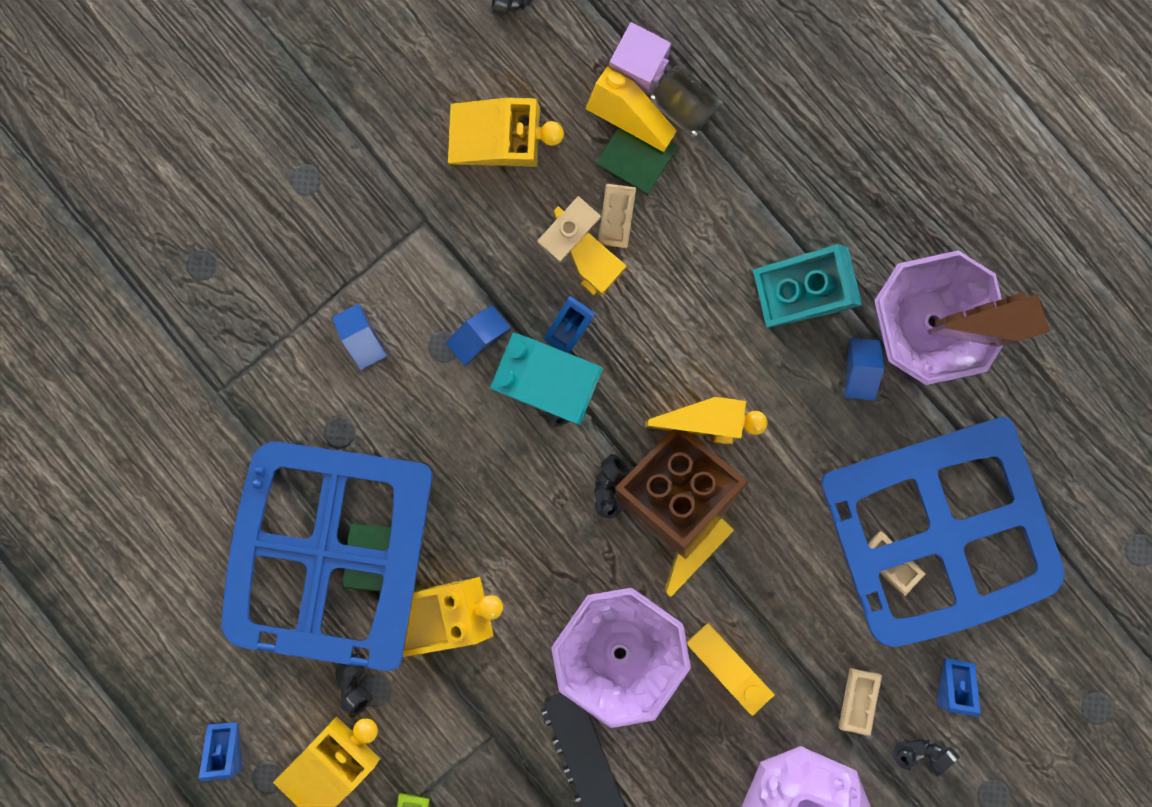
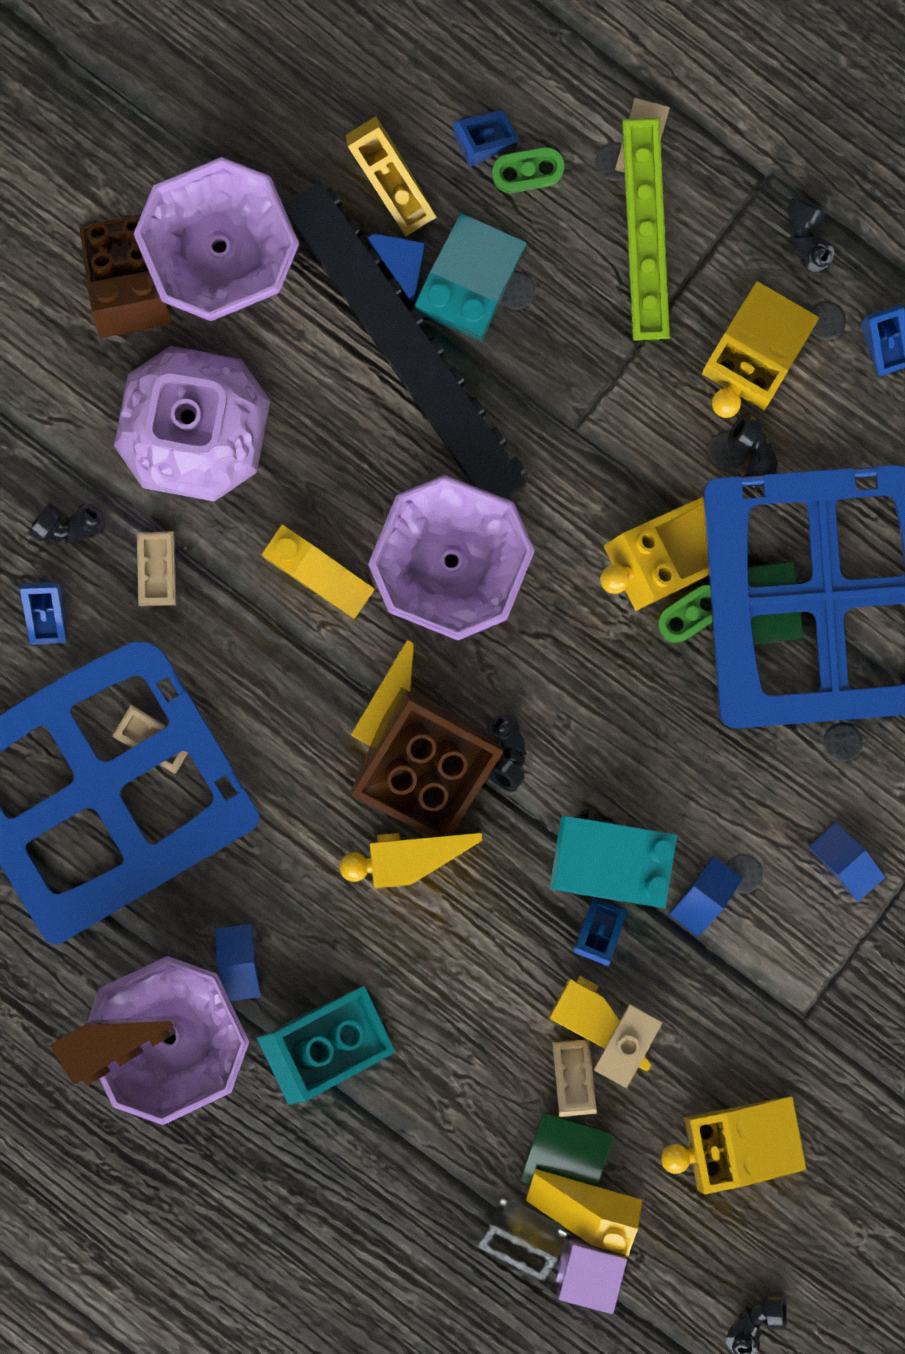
camera: 170 degrees right, 0 degrees up
(436, 563) = (690, 614): none -> bright green plate

